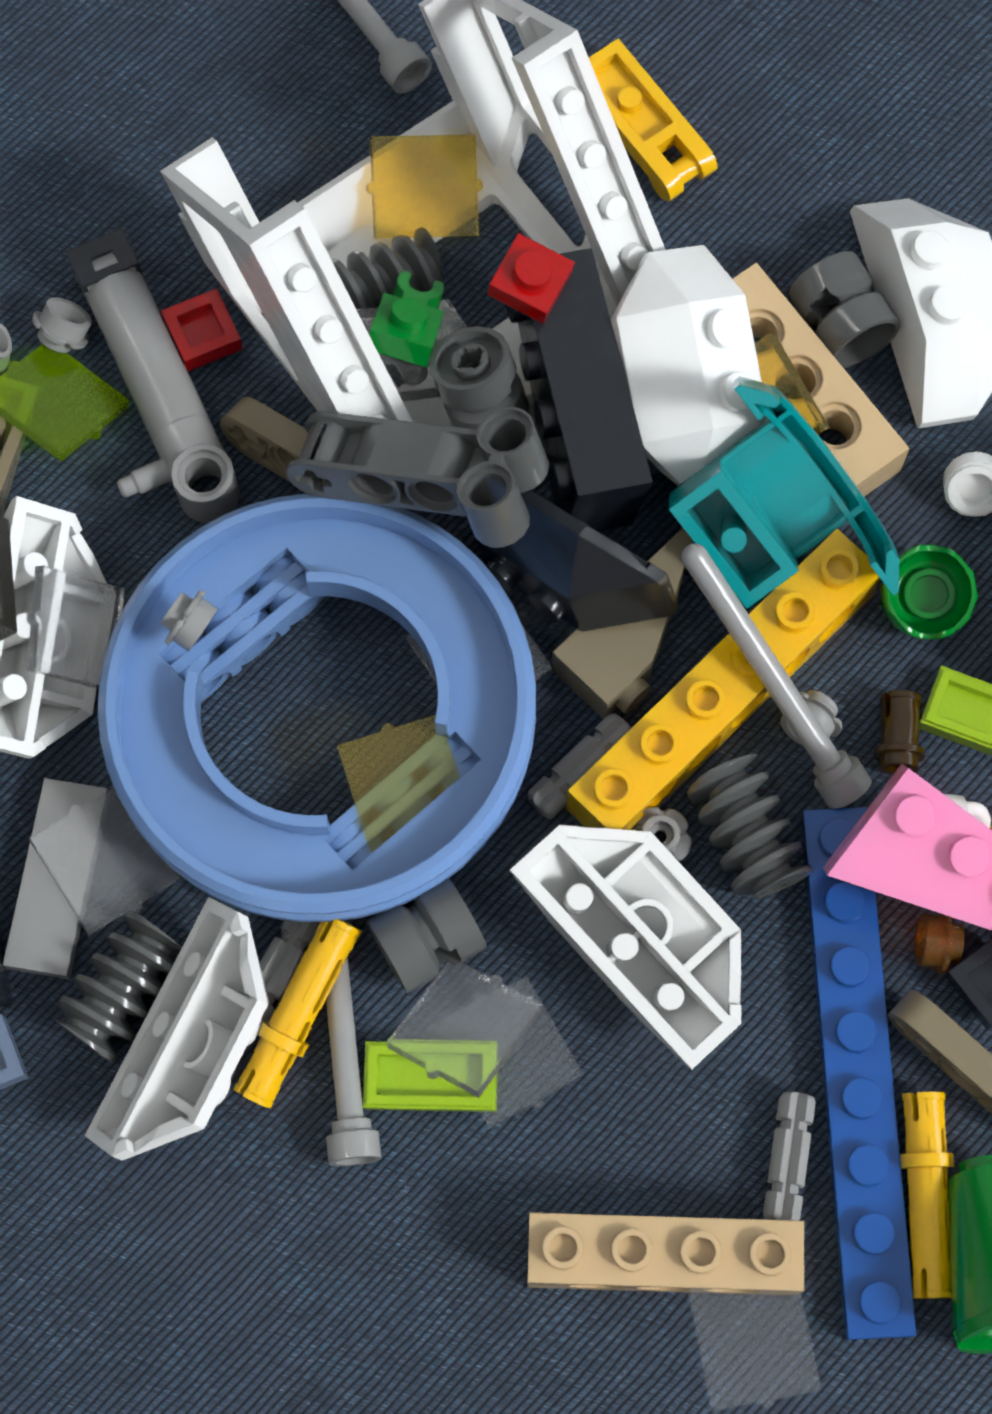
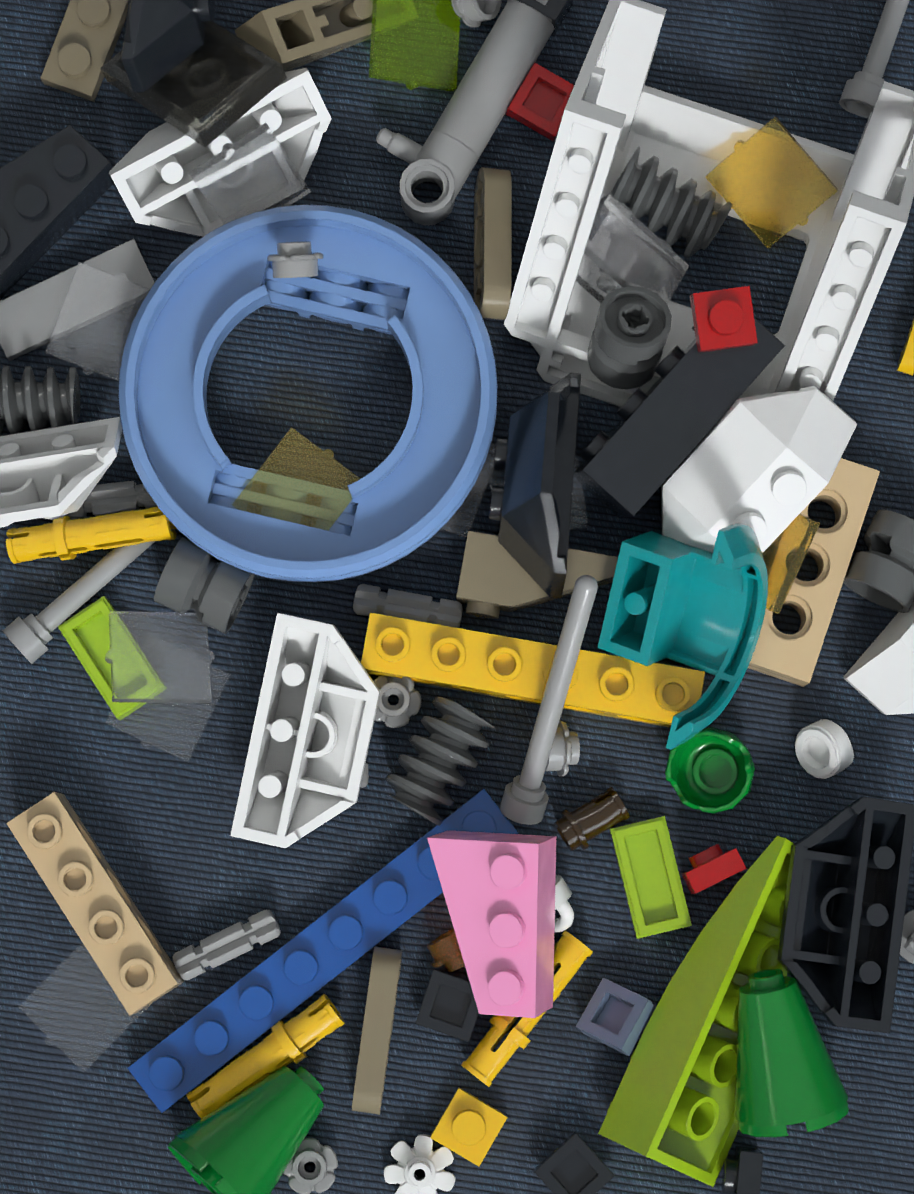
camera: 55 degrees right, 10 degrees up
(408, 322) = (636, 252): green plate -> none
(428, 467) = (522, 350): dark grey piece -> none

